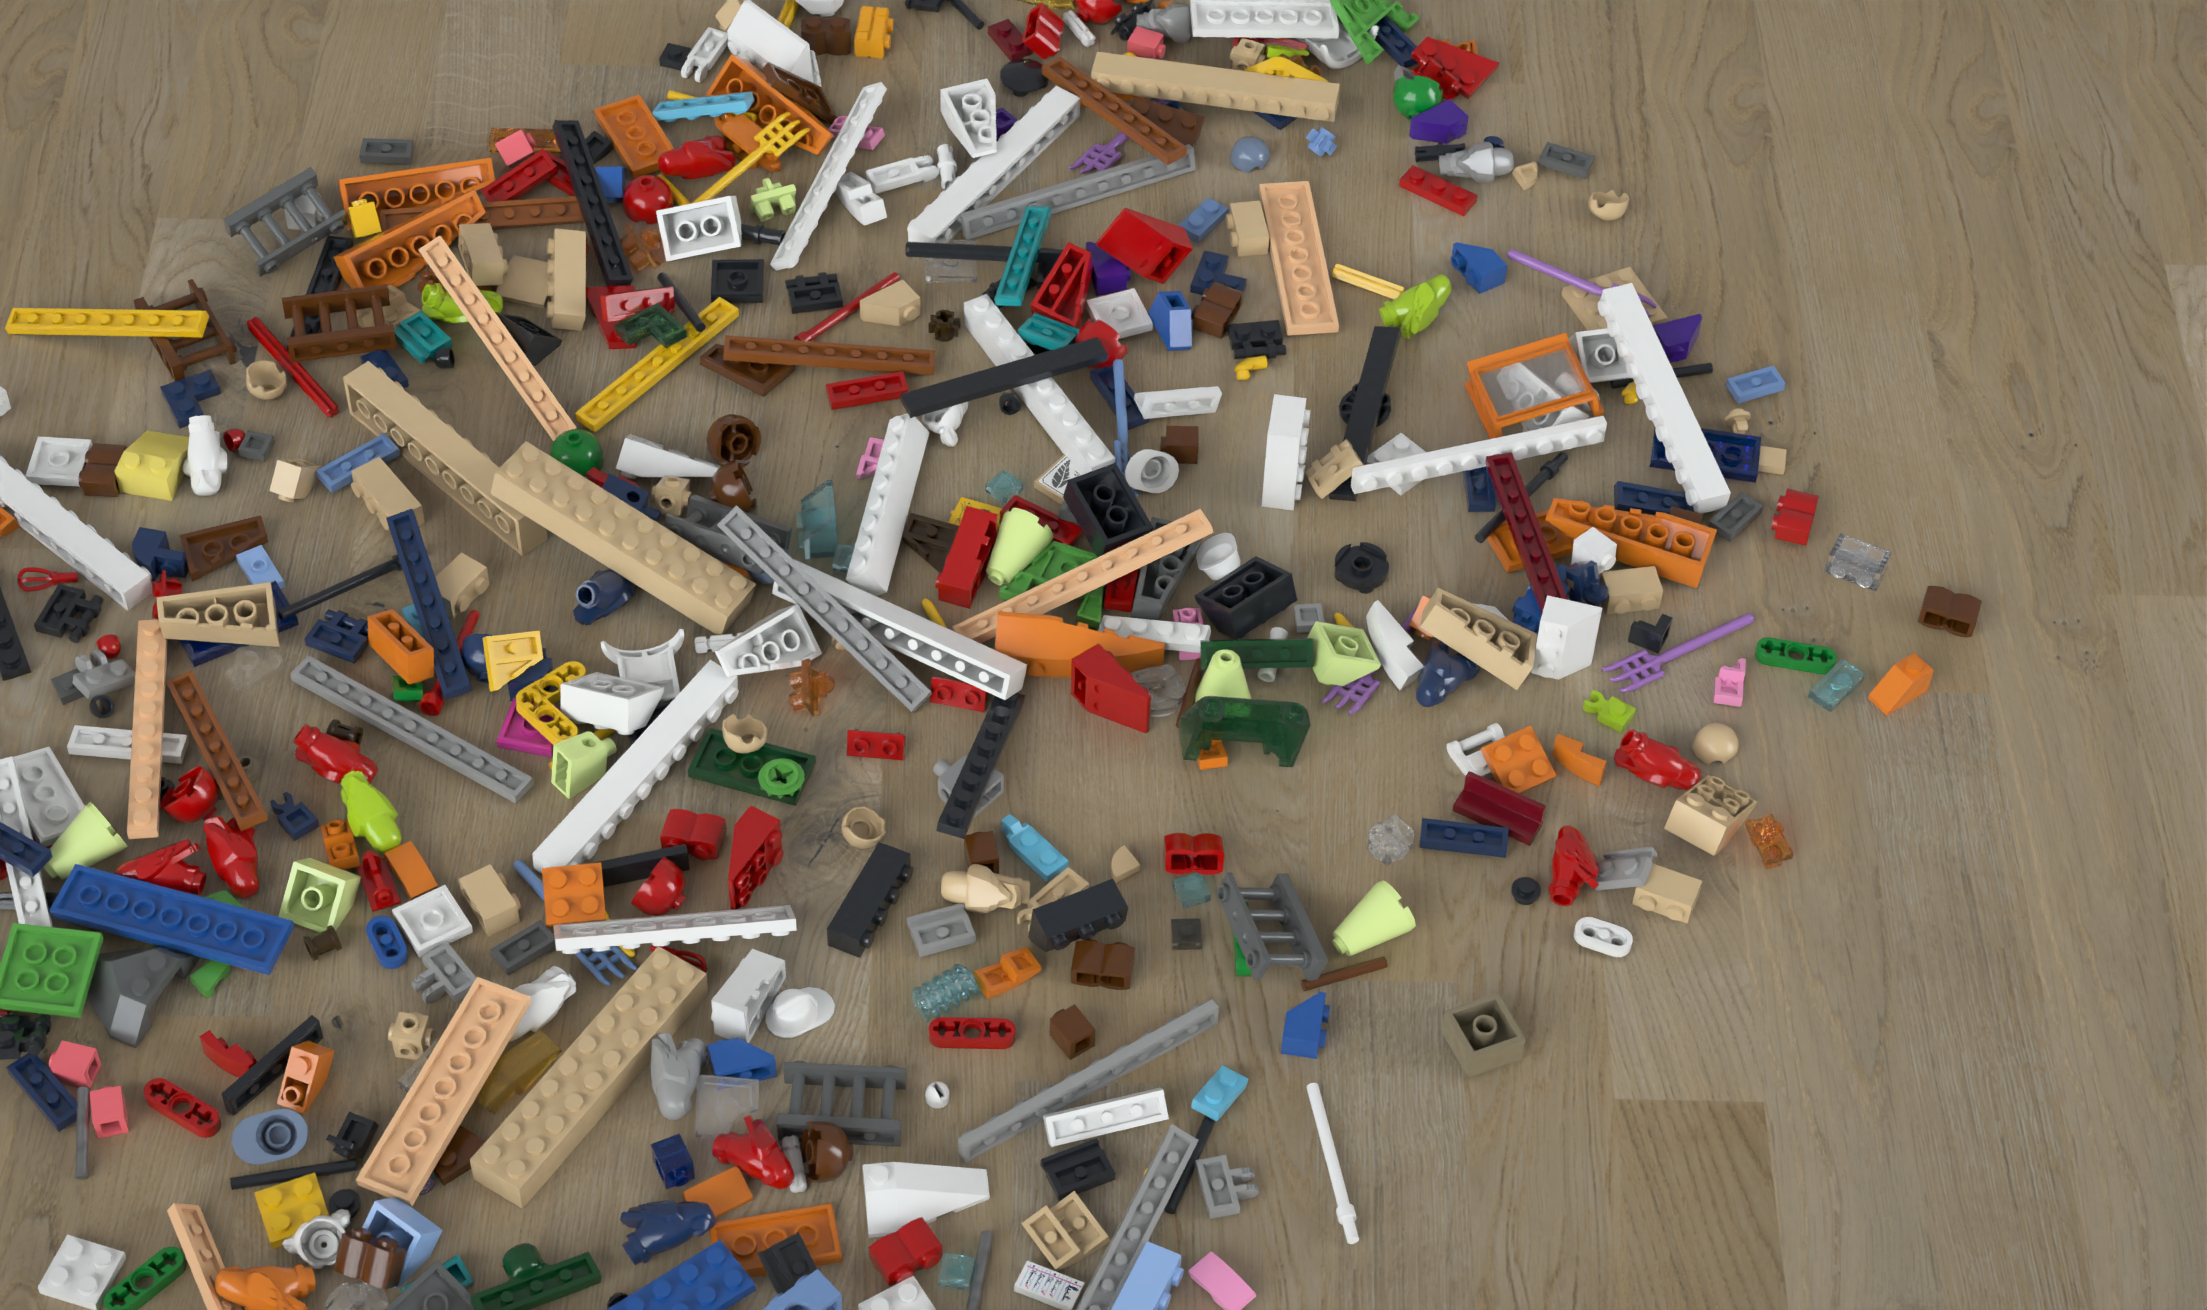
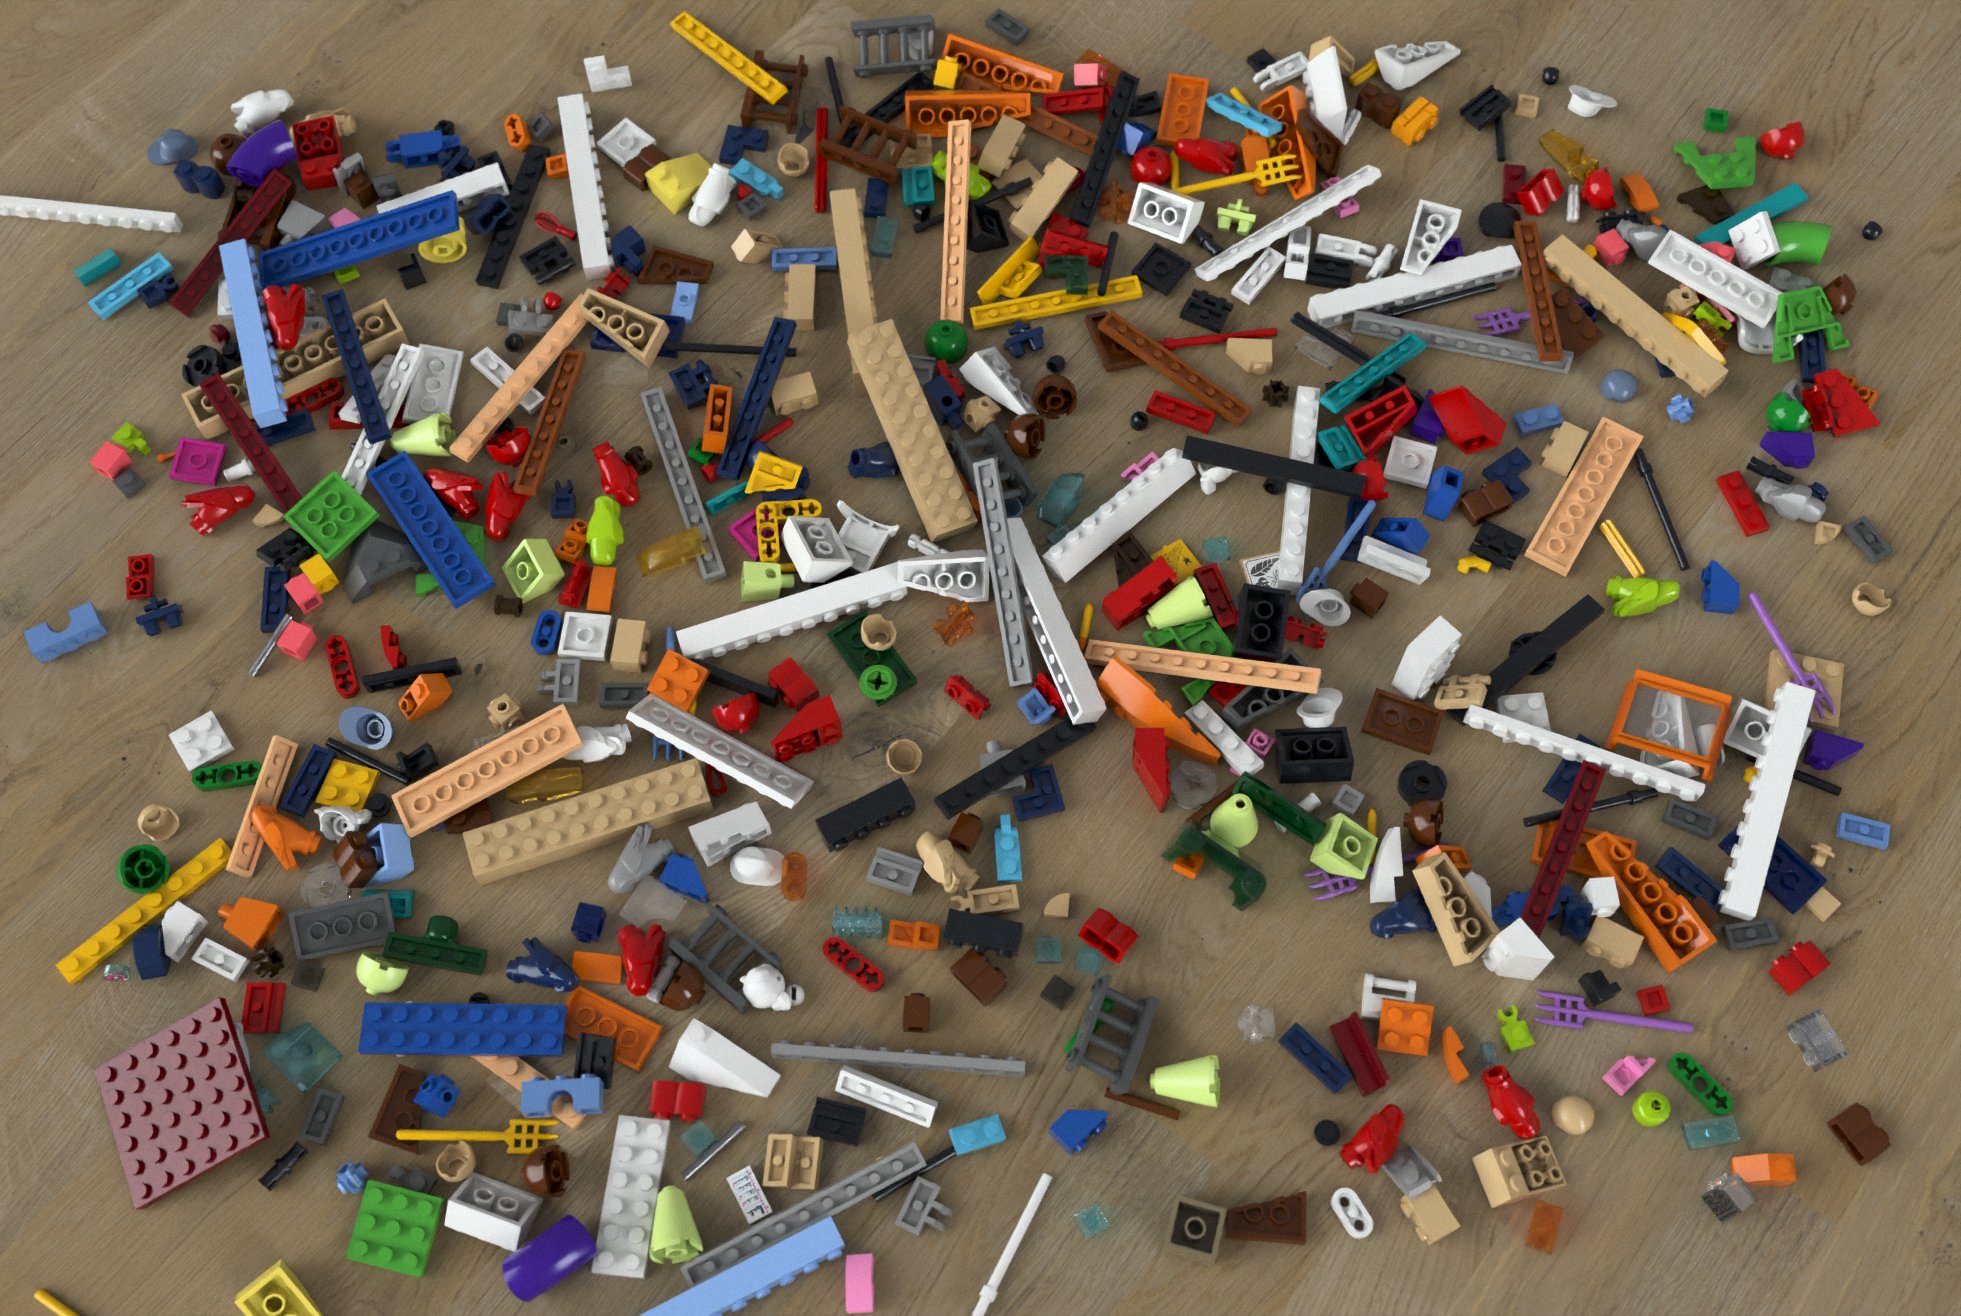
camera: 40 degrees right, 15 degrees up
(77, 1031) = (319, 574): none -> yellow brick
(243, 419) = (756, 179): none -> medium azure hinge
(244, 1227) = (308, 781): none -> dark blue plate
(251, 298) = (834, 84): none -> black bar
(428, 395) = (884, 237): none -> clear light blue plate
(458, 791) = (672, 551): none -> clear yellow slope
(472, 713) = (726, 498): none -> teal slope
(523, 289) = (1010, 189): none -> black bar
(595, 361) = (1013, 275): none -> yellow bracket
(662, 404) = (1032, 336): none -> dark blue hips
(706, 416) = (1056, 364): none -> black hinge
(831, 421) = (1136, 423): none -> black hinge
(838, 237) = (1258, 275): none -> white plate
(847, 997) = (794, 878): none -> clear orange plate
(905, 198) = (1329, 272): none -> black plate
(910, 1100) = (766, 988): none -> white hair
(952, 713) = (1035, 707): none -> medium blue bracket
(1029, 168) = (1396, 311): none -> black bar
(1029, 783) = (1045, 798): none -> dark blue plate
(1147, 903) = (1048, 950): none -> clear light blue plate
(1157, 503) = (1311, 634): none -> red hinge
(1165, 373) = (1402, 533): none -> blue slope
(1300, 526) = (1402, 721): none -> reddish brown plate
(1334, 210) = (1645, 471): none -> black bar
(1385, 1093) = (1091, 1221): none -> clear light blue plate
(1393, 589) = (1425, 821): none -> reddish brown cylinder
(1543, 987) = (1272, 1221): none -> reddish brown wing
(1607, 739) = (1489, 1054): none -> clear light blue tile
(1610, 458) = (1689, 819): none -> dark grey plate
(1702, 616) = (1653, 1000): none -> red tile
(1774, 695) = (1651, 1108): none -> lime head
(1893, 717) = (1728, 1196): none -> clear brick

